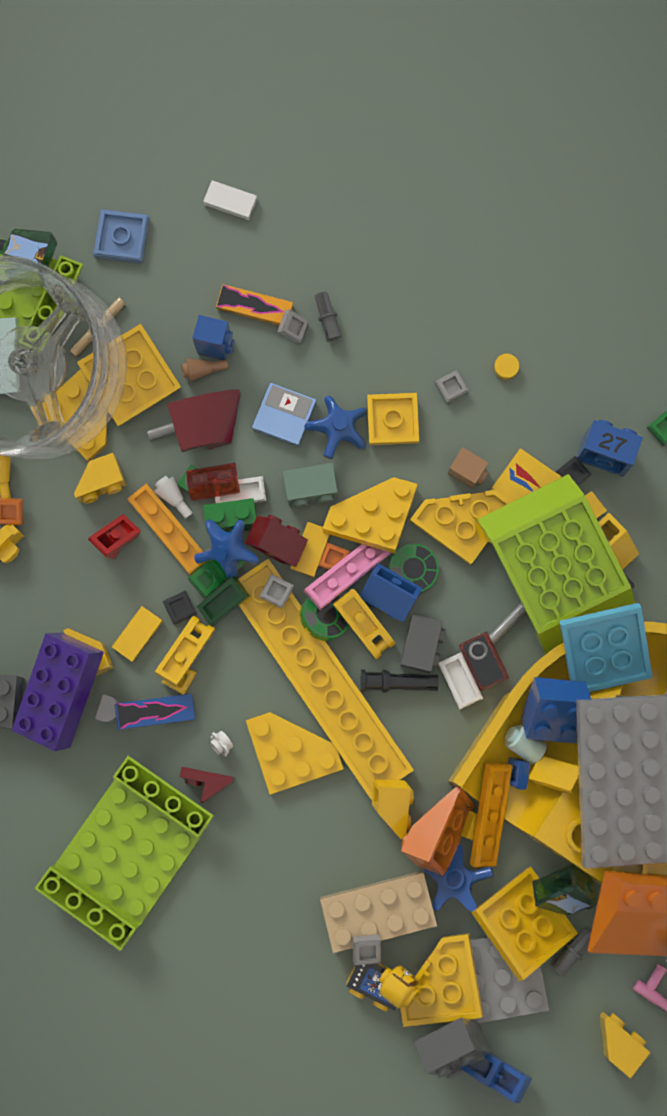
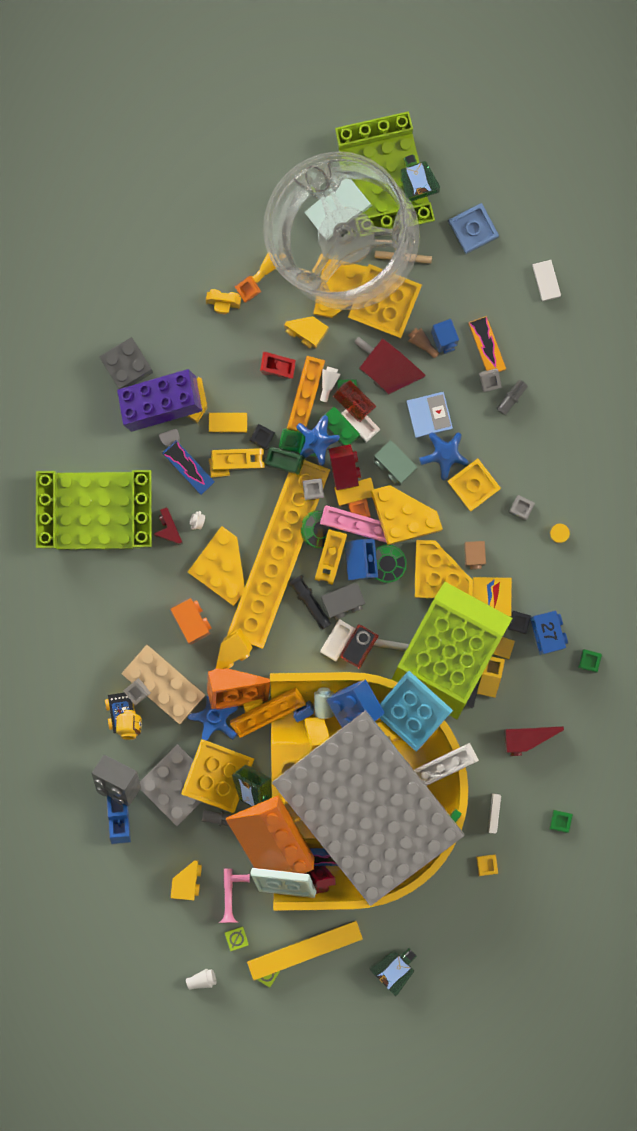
camera: 50 degrees right, 5 degrees up
(328, 830) = (190, 621): none -> orange brick
(446, 985) = (149, 753): yellow plate -> none

